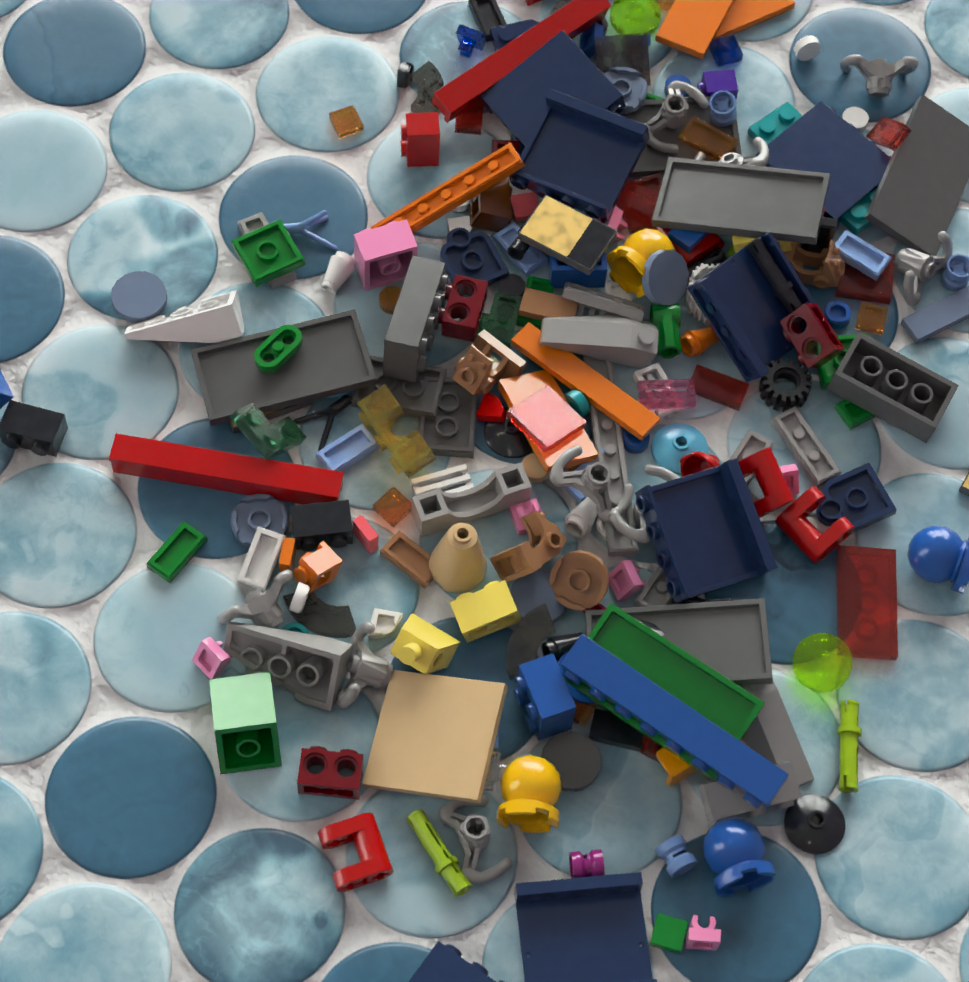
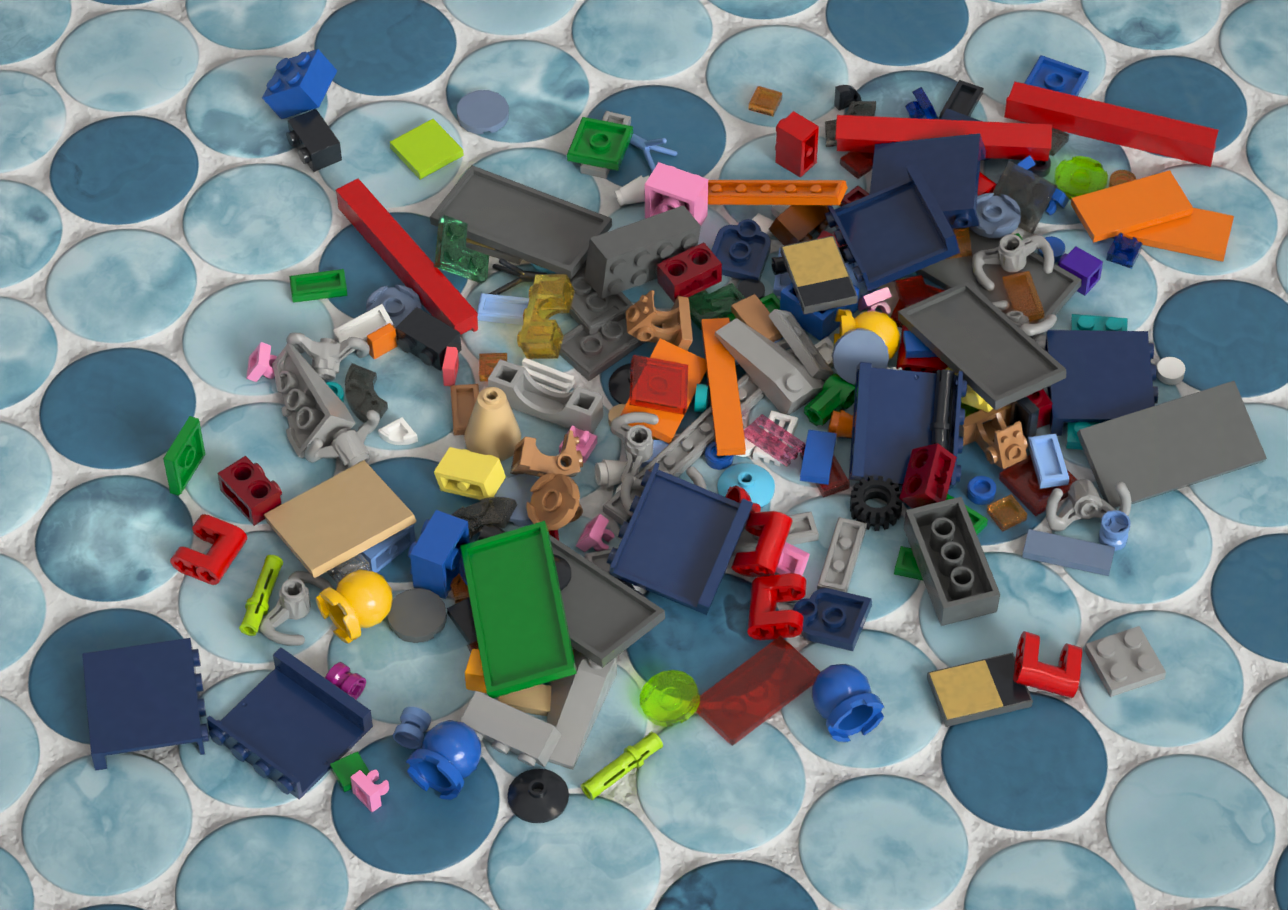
camera: 50 degrees right, 10 degrees down
(129, 364) = (426, 148): none -> lime tile
(211, 322) = (499, 155): white wedge -> none
(245, 722) = (234, 414): slope -> none
(253, 791) = (184, 456): none -> green tile
(276, 349) = (526, 203): green plate -> none
(299, 598) = (355, 367): white tile -> none
(318, 567) = (390, 360): orange brick -> none
(424, 646) = (399, 459): light yellow torso -> none
(491, 409) = (641, 350): red tile -> none
(673, 721) = (496, 629): blue brick -> none
(711, 382) = (818, 457): none -> blue tile
(723, 108) = (1055, 280): medium blue wheel -> none
(807, 48) = (1191, 292): white tile -> none
(879, 72) = (1228, 348): light grey piece -> none
(889, 133) = (1175, 392): clear red tile -> none

